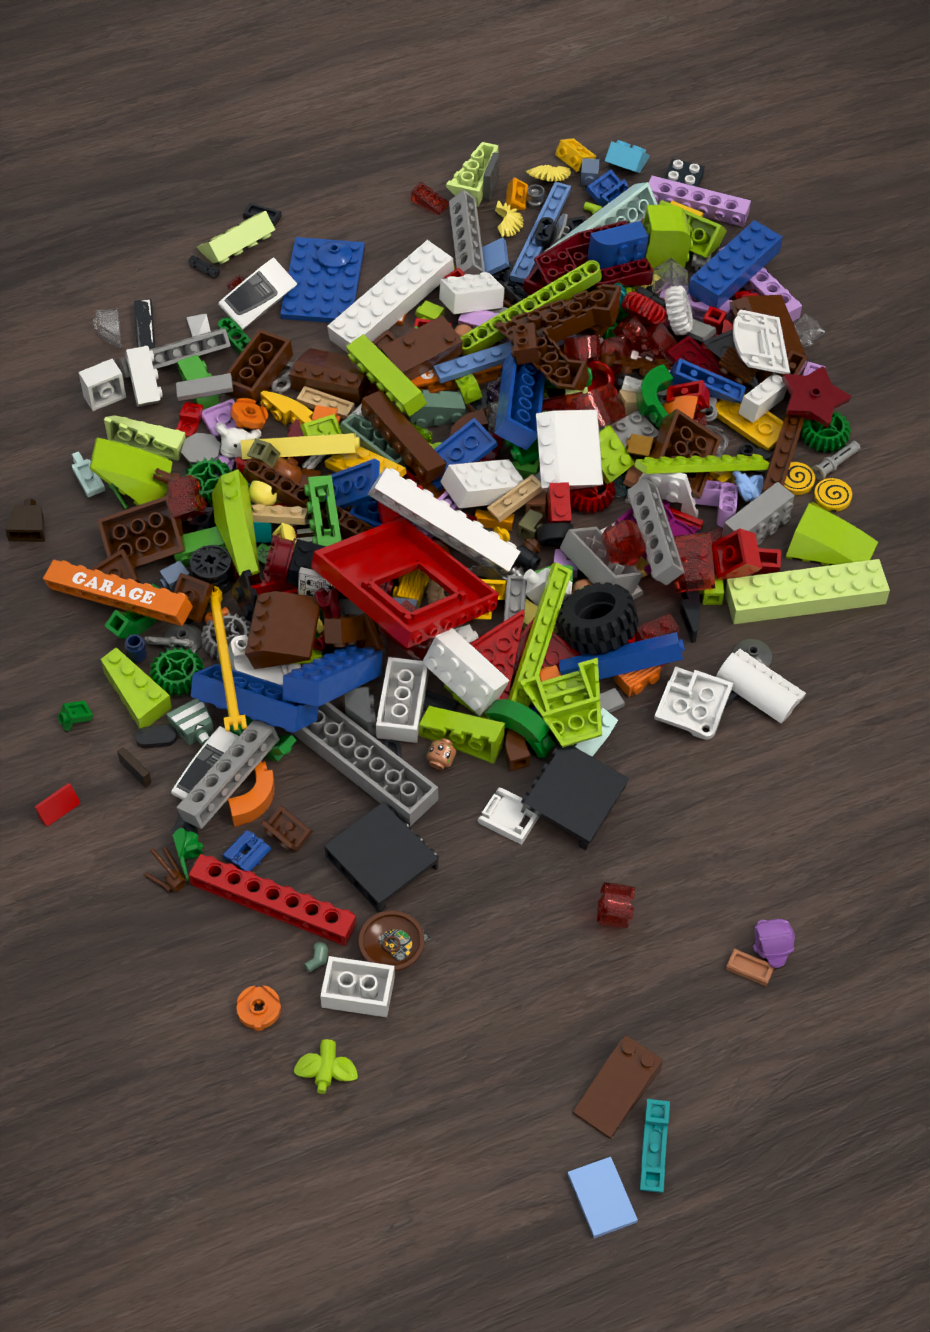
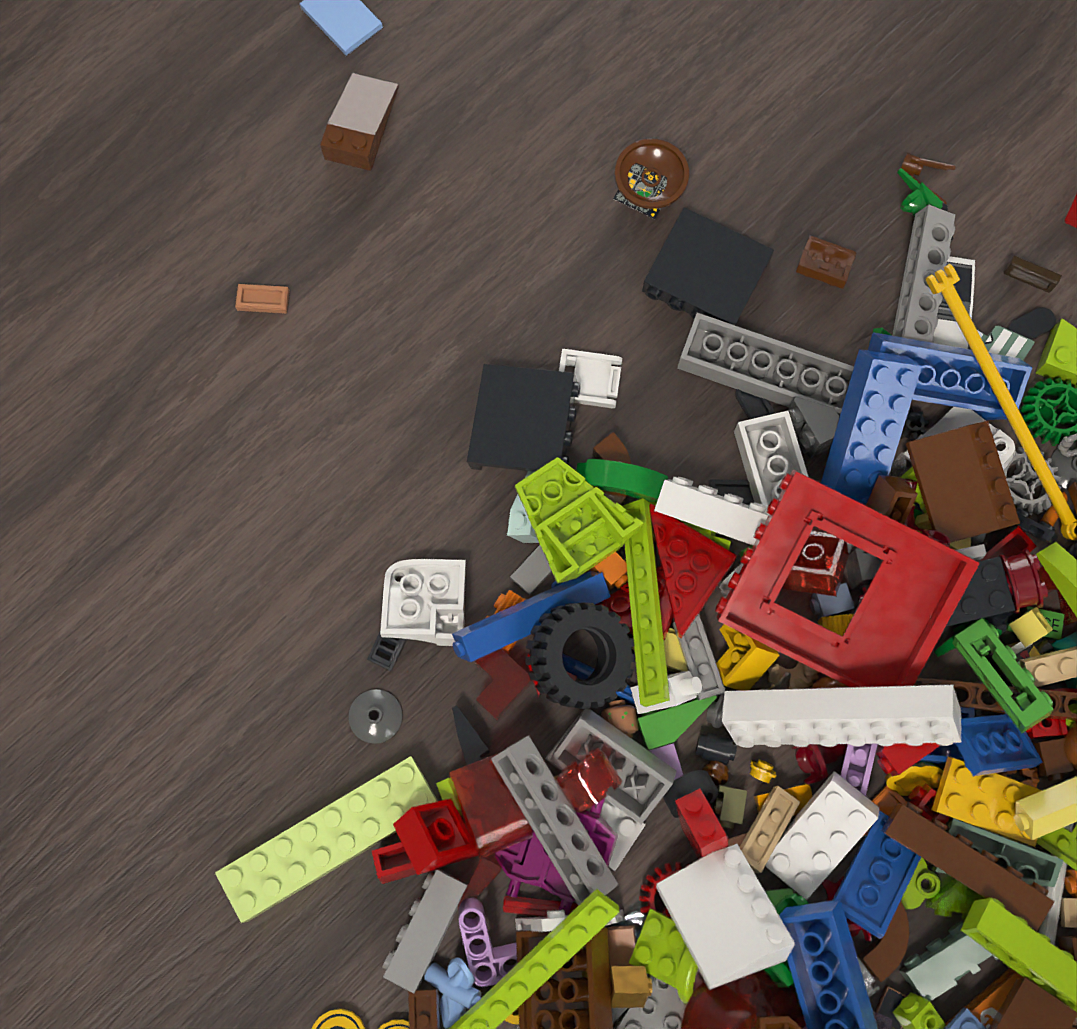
camera: 160 degrees right, 20 degrees up
(240, 893) = (810, 173): red brick -> none
(246, 841) = (843, 231): blue piece -> none
(255, 802) = (874, 288): orange arch -> none
(258, 1019) = (751, 81): orange plate -> none
(320, 957) = (720, 143): sand green arm -> none
(325, 1066) = (658, 35): lime plant -> none
(357, 986) = (665, 113): white brick -> none
(441, 754) = (698, 419): nougat head -> none
(468, 733) = (687, 454): lime wedge -> none
(614, 905) = (428, 300): clear red brick -> none
(654, 1146) = (303, 70): teal slope -> none
(760, 685) = (349, 664): white brick -> none
(774, 941) = (243, 329): medium lavender piece -> none
(829, 539) = (319, 952): lime wedge -> none

